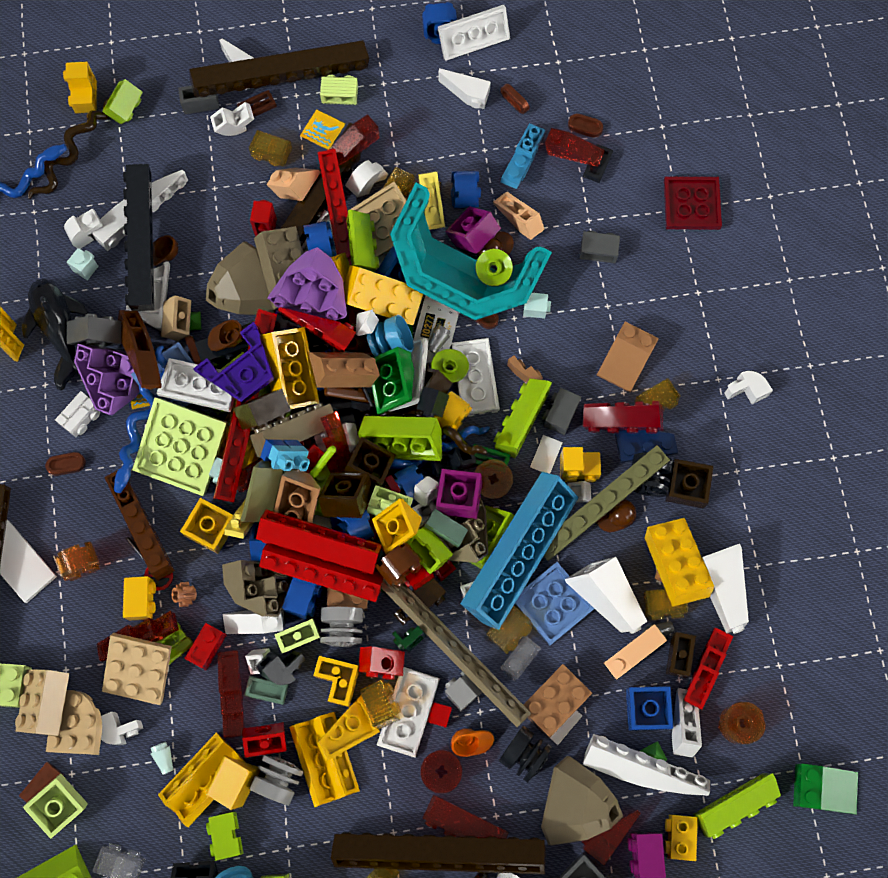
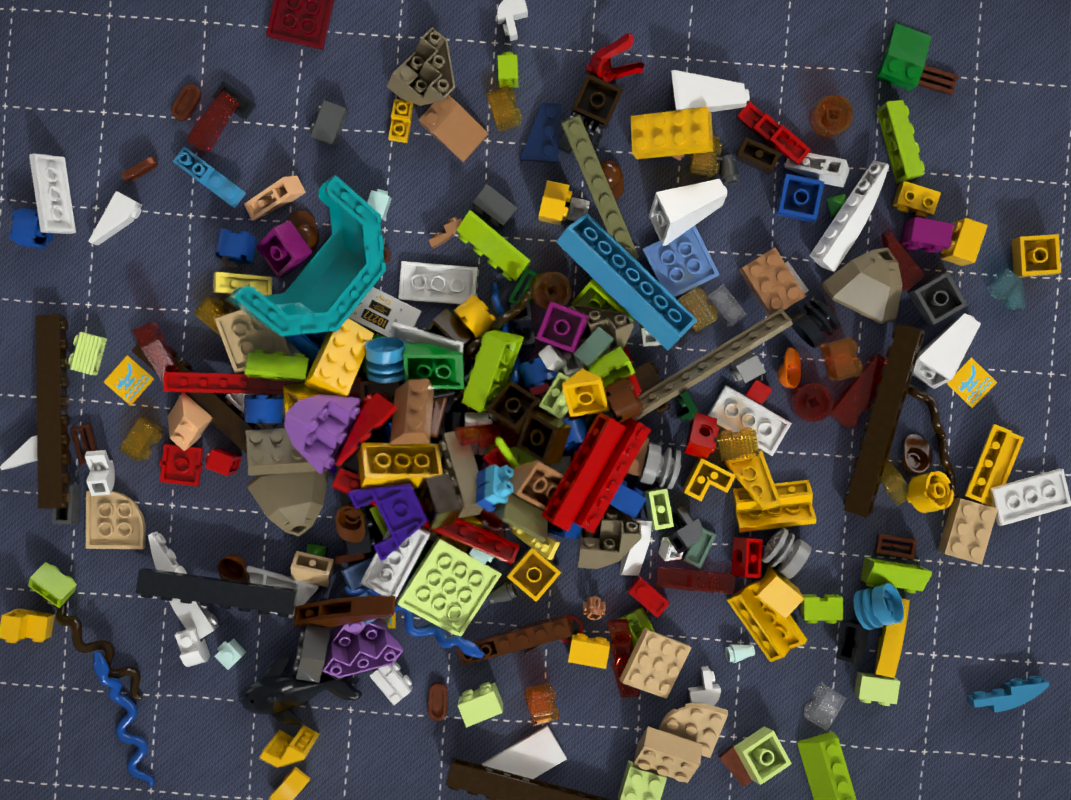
camera: 75 degrees left, 15 degrees up
(68, 501) = (480, 704): none -> yellowish green brick
(183, 502) = (503, 593): none -> dark grey cone
(189, 142) = (114, 522): none -> tan plate
(252, 186) = (181, 466): none -> red plate
(364, 177) = (198, 347): white brick -> none
(366, 322) = (367, 380): white slope -> none
(432, 402) = (467, 332): black brick -> none
(438, 338) = (393, 311): flat silver cone -> none
(451, 359) = (416, 301): lime dish -> none
(494, 792) = (841, 359): none -> clear orange brick
(496, 258) = (337, 230): lime dish -> none
(546, 454) = (533, 232): white sticker -> none
(620, 310) = (401, 121): none -> yellow slope
(623, 417) = (517, 148): dark red wedge -> none
(635, 651) = (745, 197): light nougat slope -> none
(670, 319) = (427, 73): none -> dark tan brick
(695, 392) = (508, 70): none -> lime brick
(726, 481) = (601, 65): none -> red piece
(804, 831) = (953, 77): none -> copper tile

